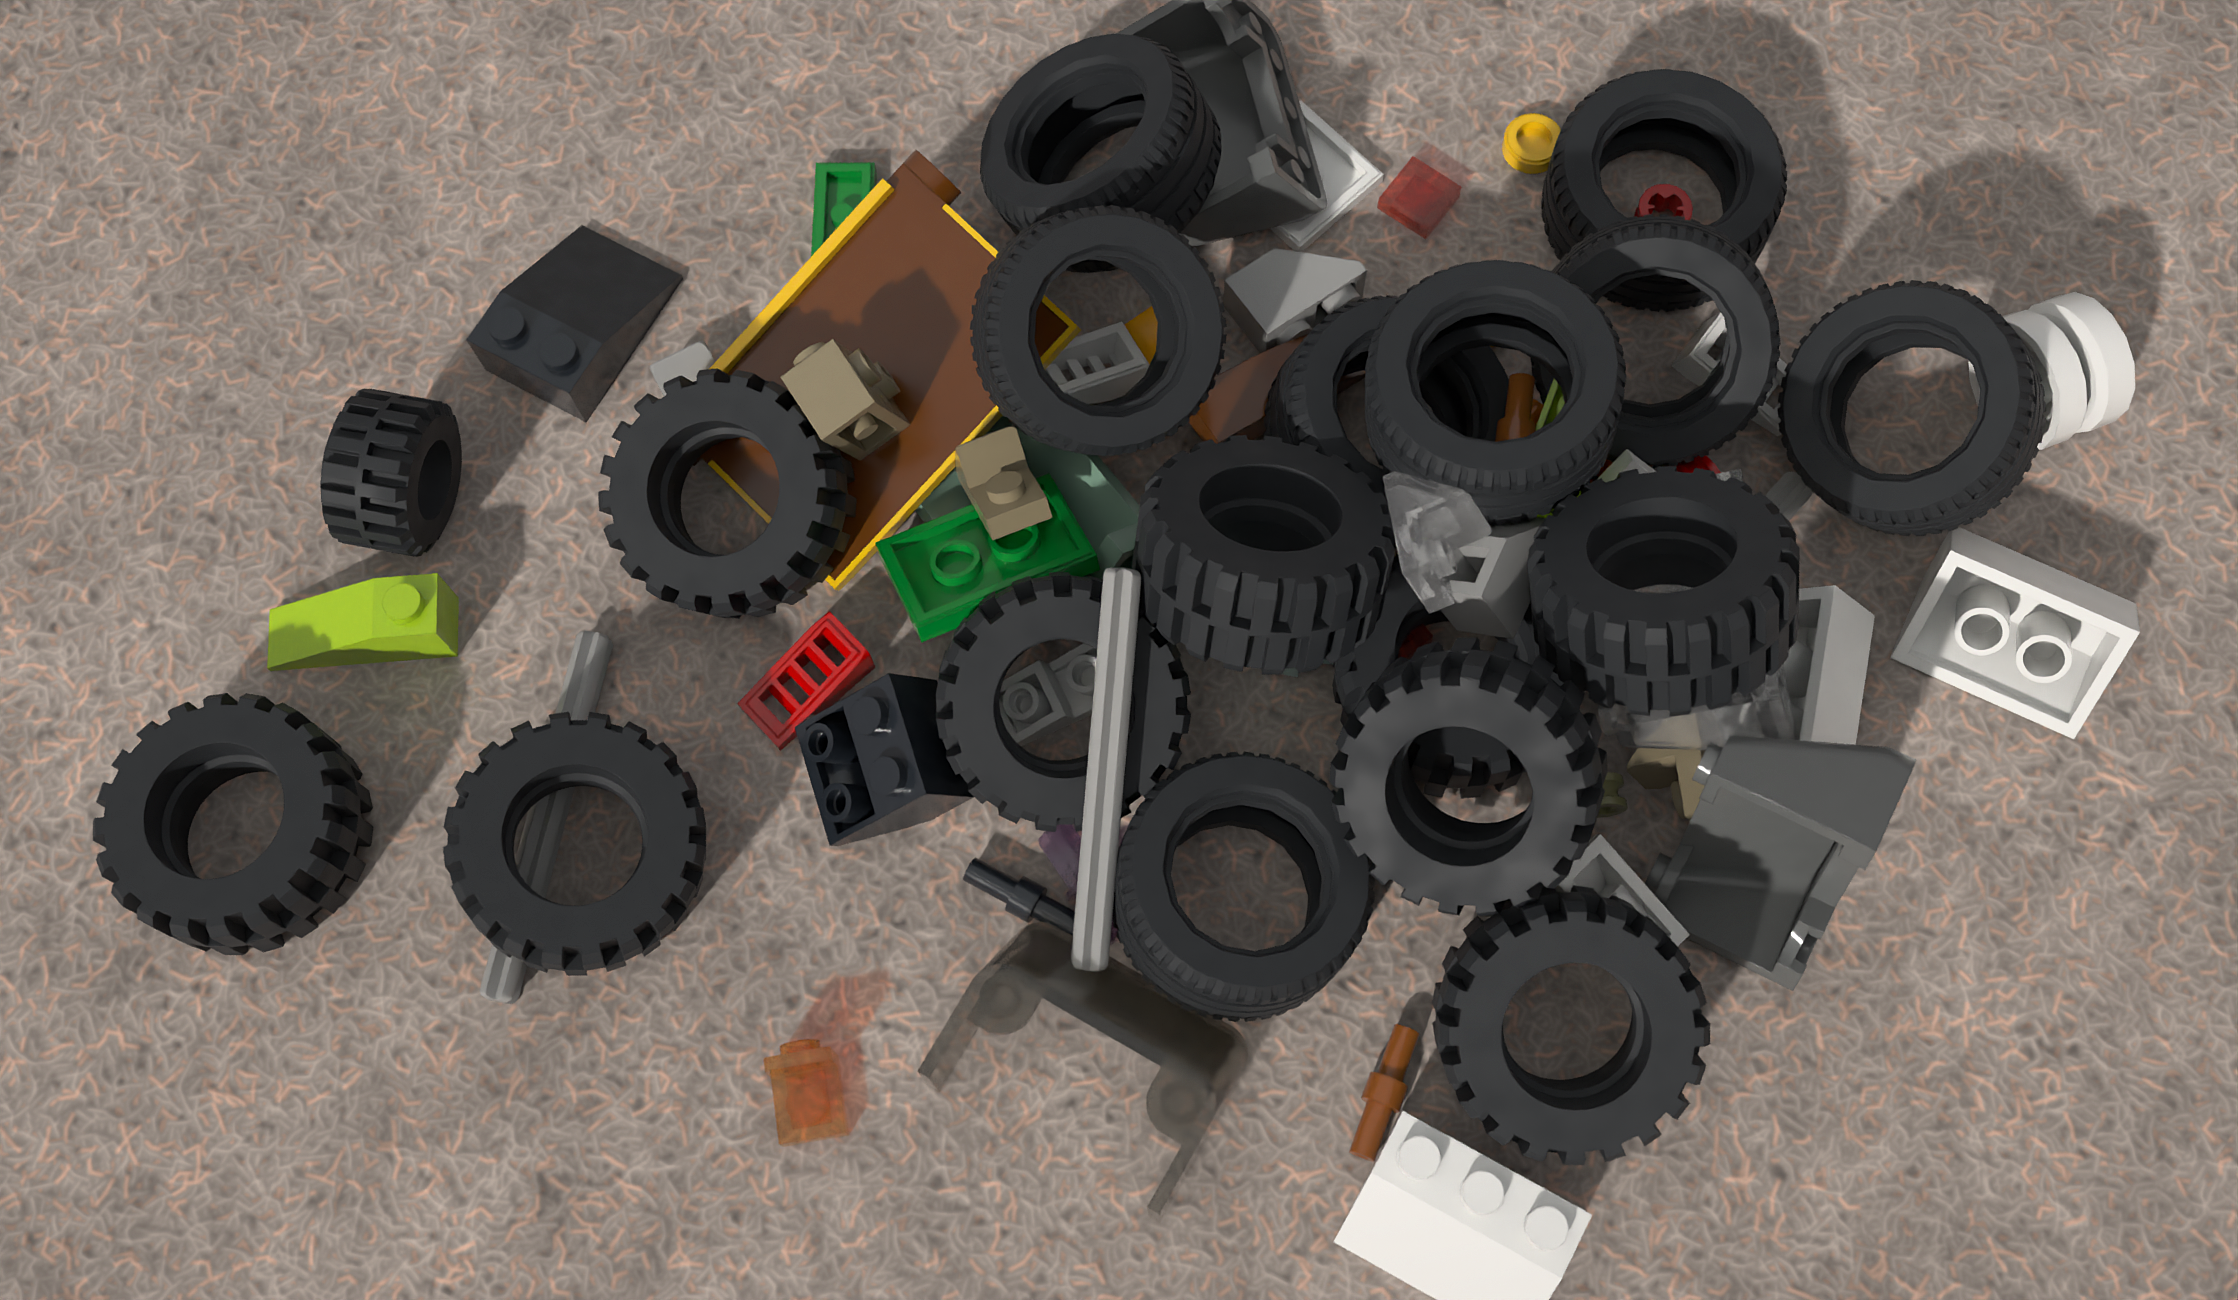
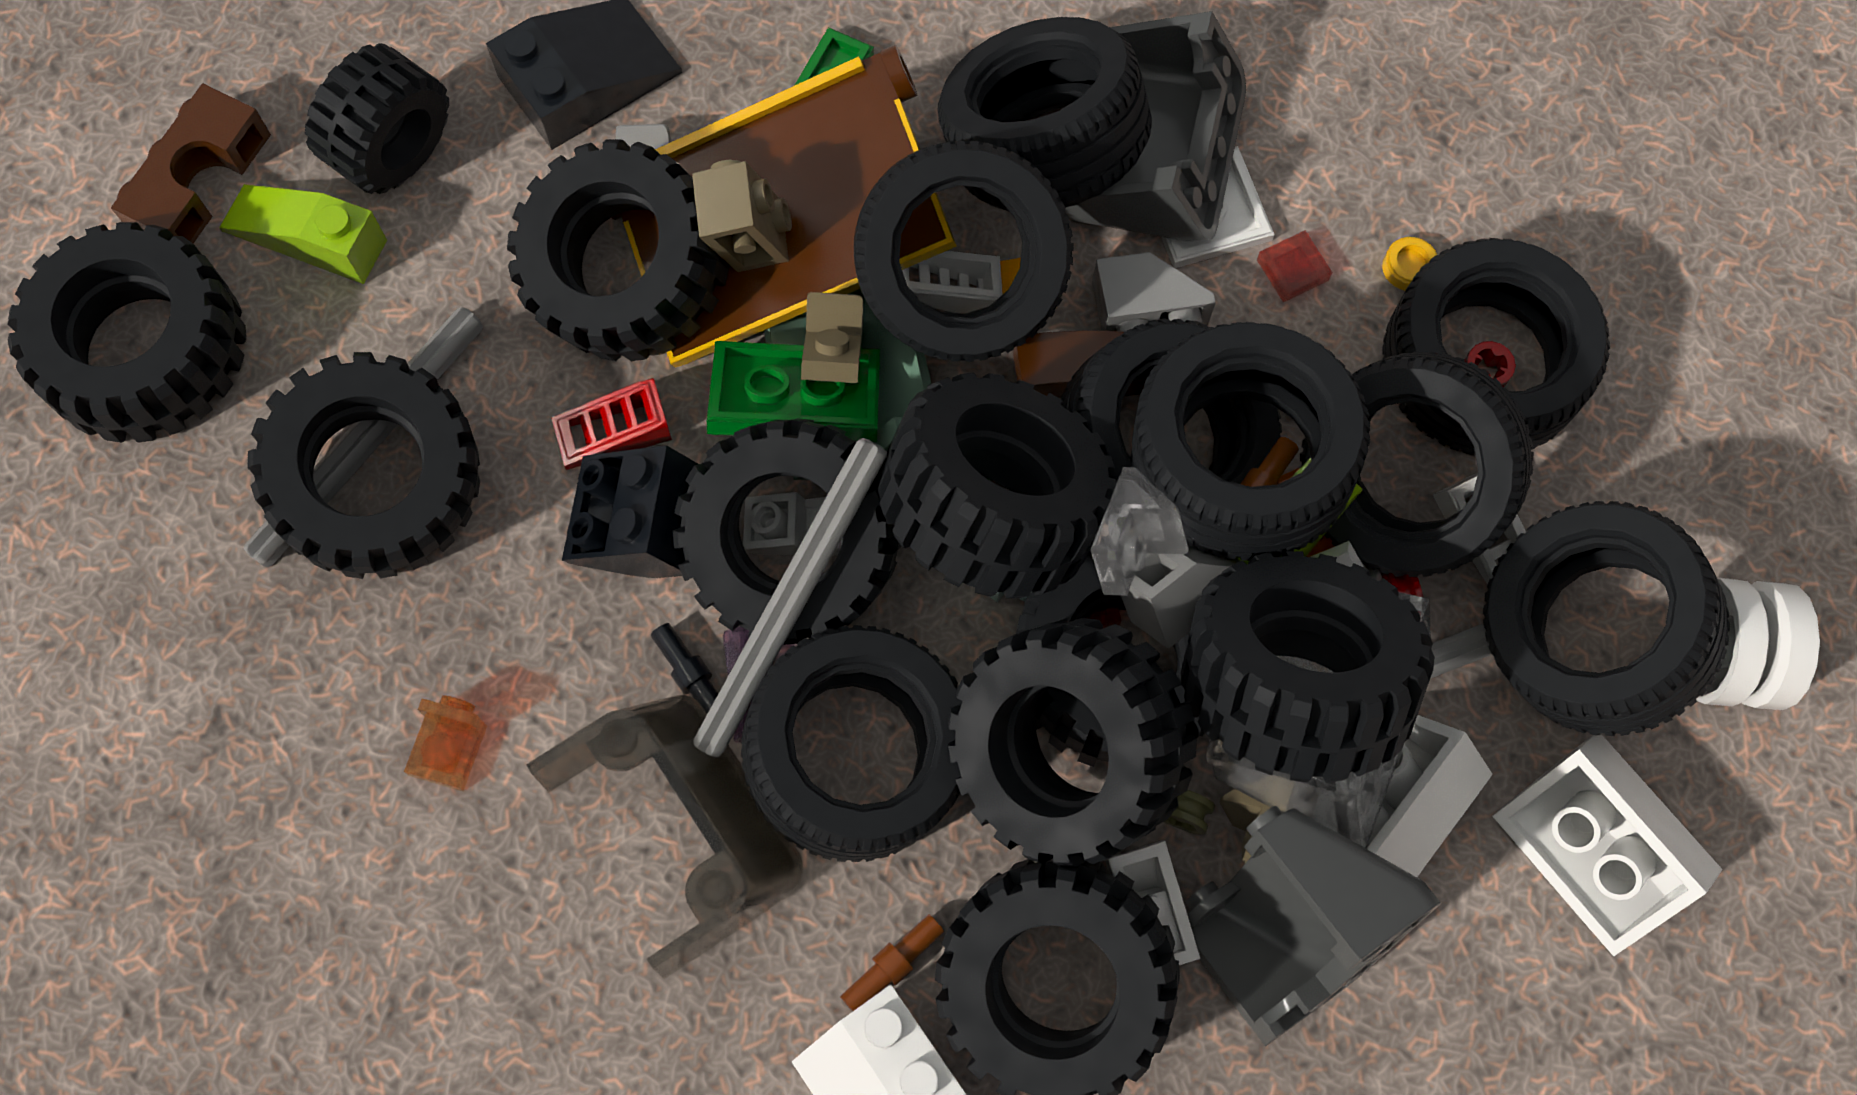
camera: 20 degrees right, 0 degrees up
(202, 572) = (206, 134): none -> reddish brown arch

